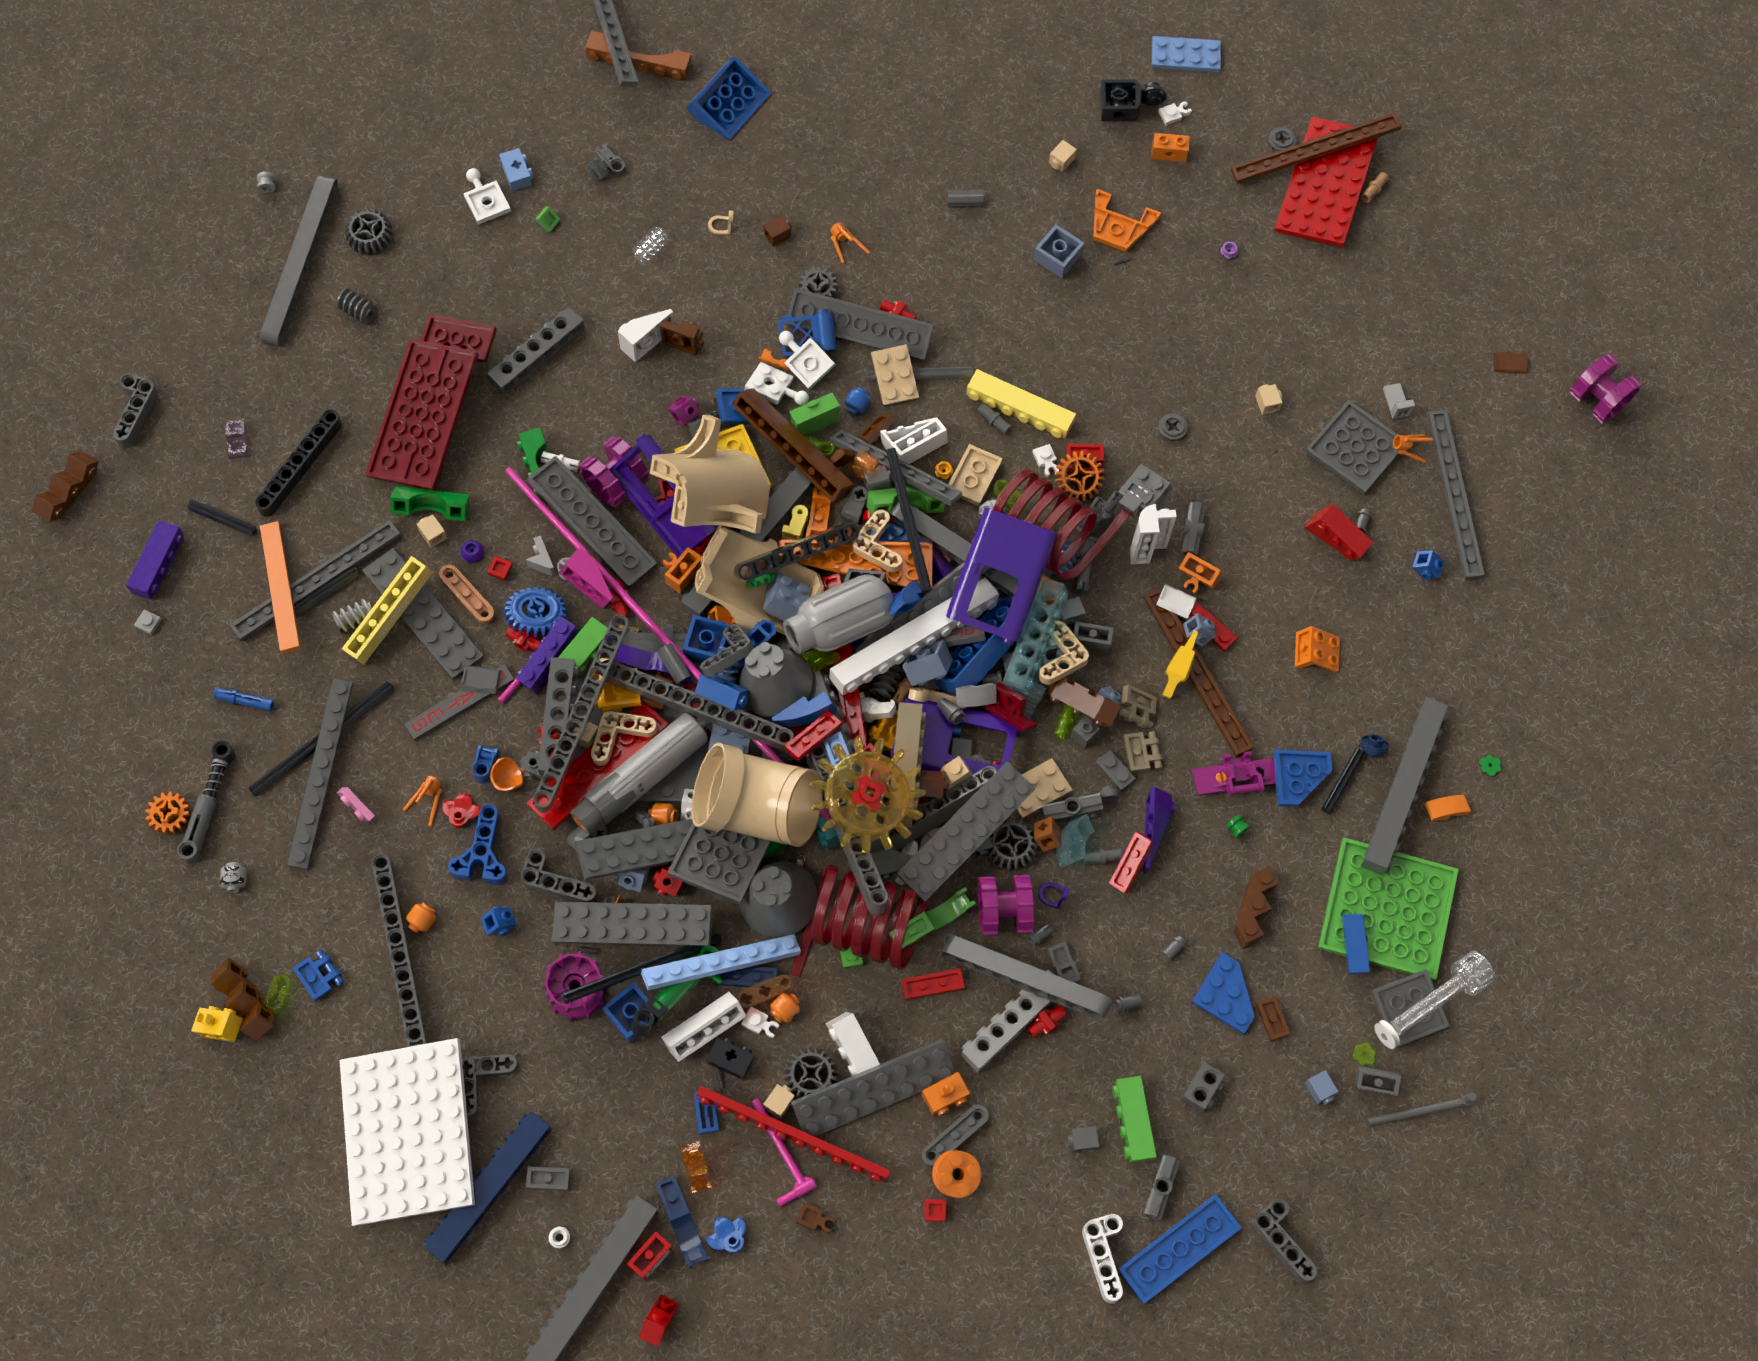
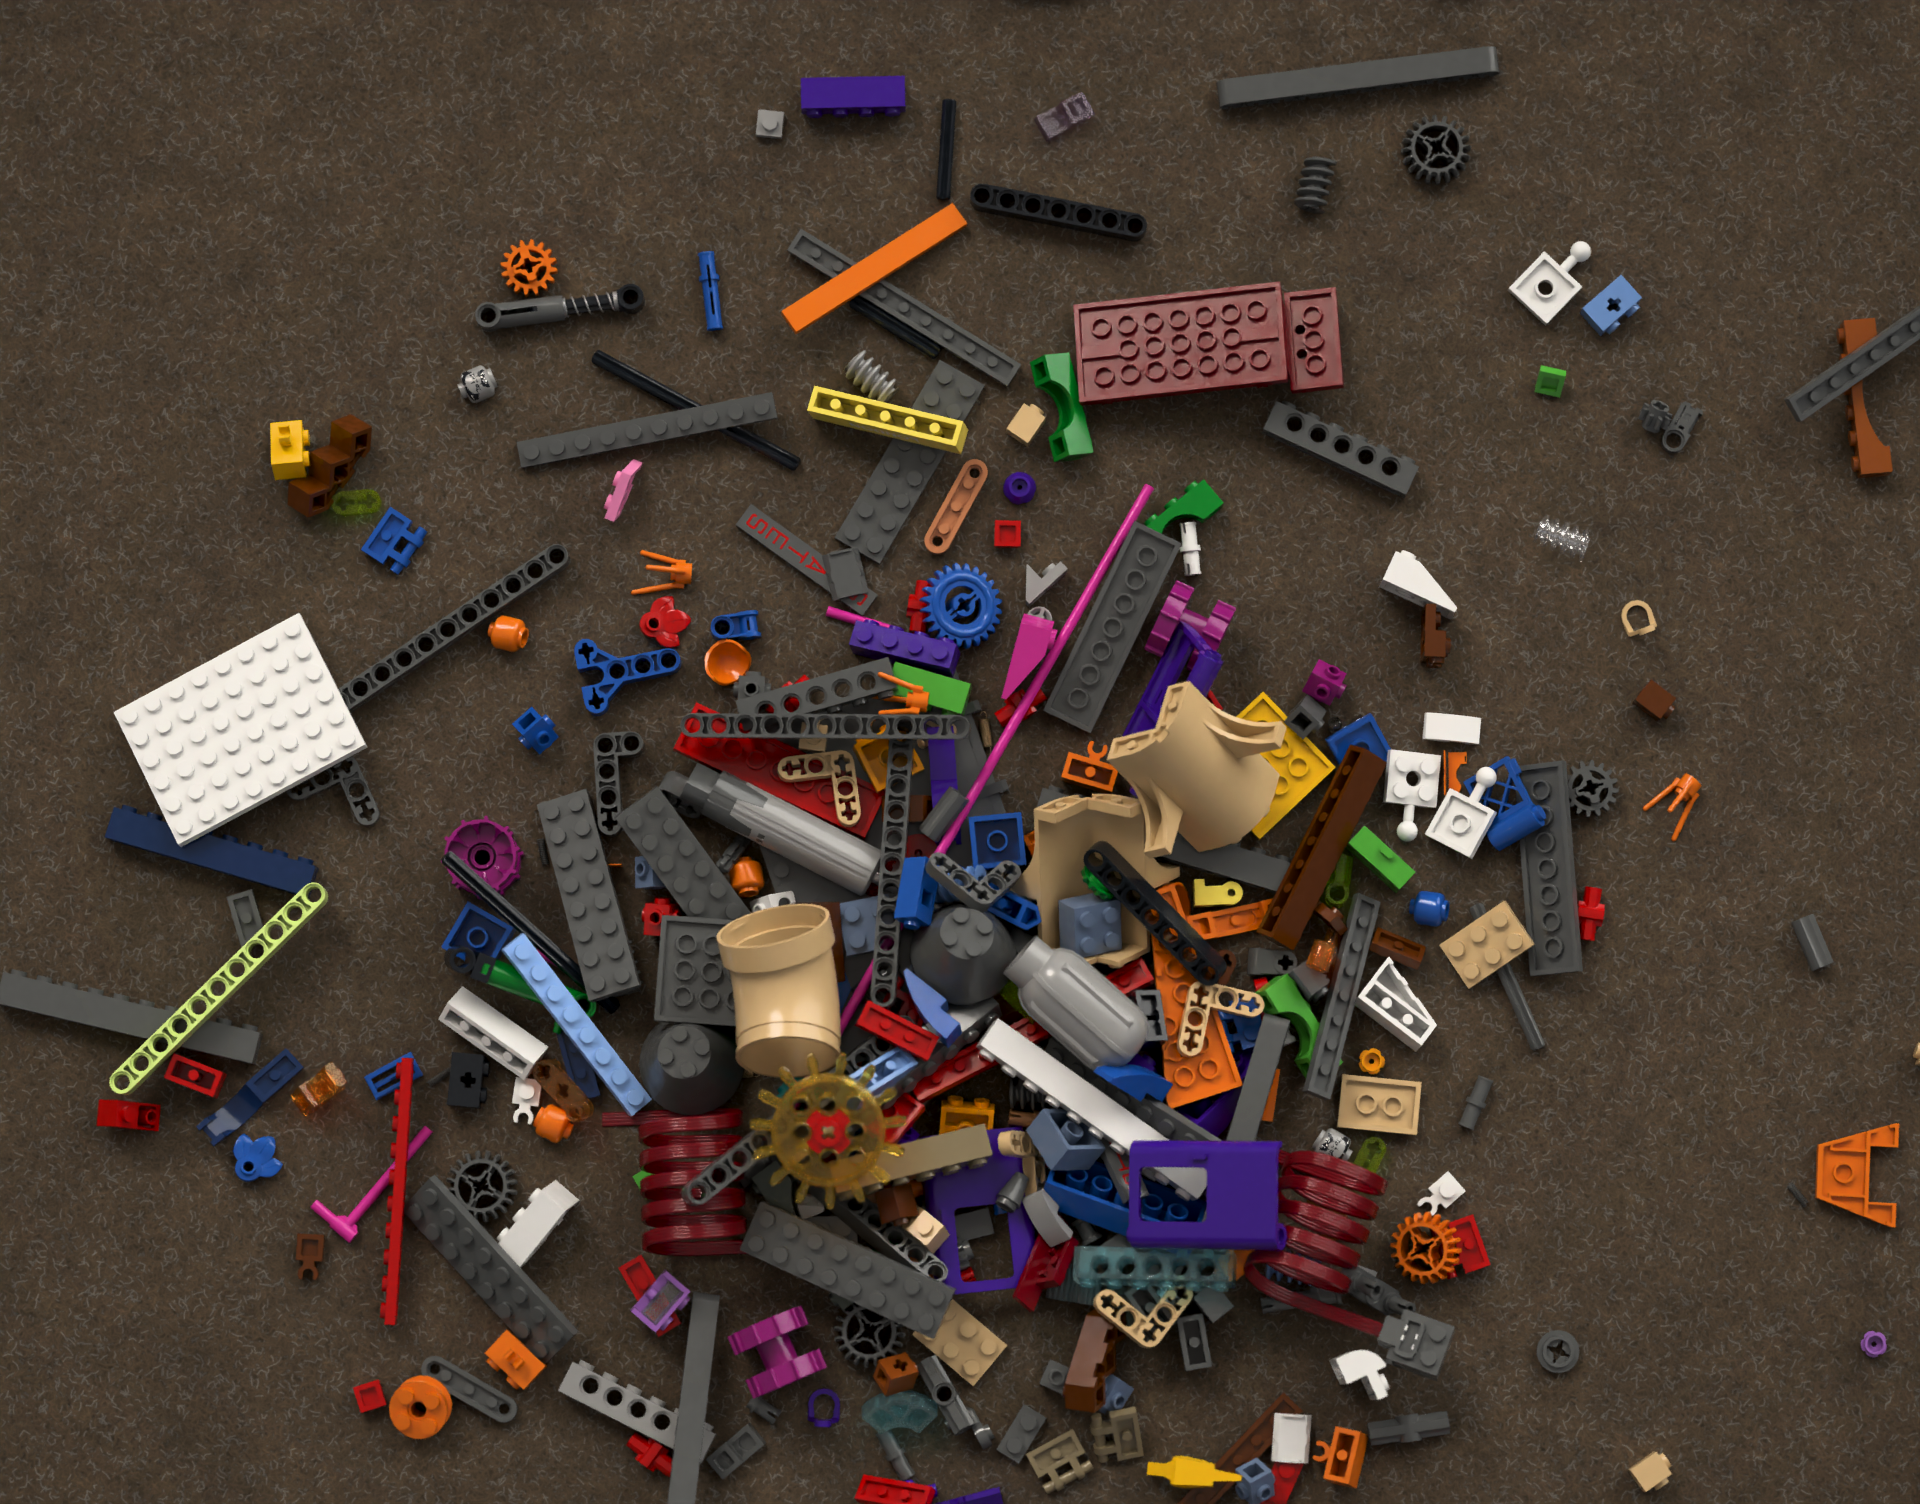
camera: 75 degrees right, 15 degrees up
(552, 1237) = (178, 953): white plate -> none
(588, 651) = (915, 701): none -> orange plant
(598, 1220) = (206, 993): none -> yellowish green beam
(728, 99) = (1843, 552): blue slope -> none
(745, 350) = (1451, 728): none -> white slope
(779, 1101) = (435, 1159): tan brick -> none
(874, 709) = (982, 1091): white animal -> none
(909, 520) = (1257, 1043): black axle -> none
(936, 918) = (736, 1269): bright green piece -> none
(940, 973) = (661, 1301): none -> window
(1020, 404) = (1510, 1131): light yellow brick -> none
(1058, 251) = (1771, 1103): sand blue brick -> none
(1065, 720) = (1059, 1344): clear neon green pin -> none

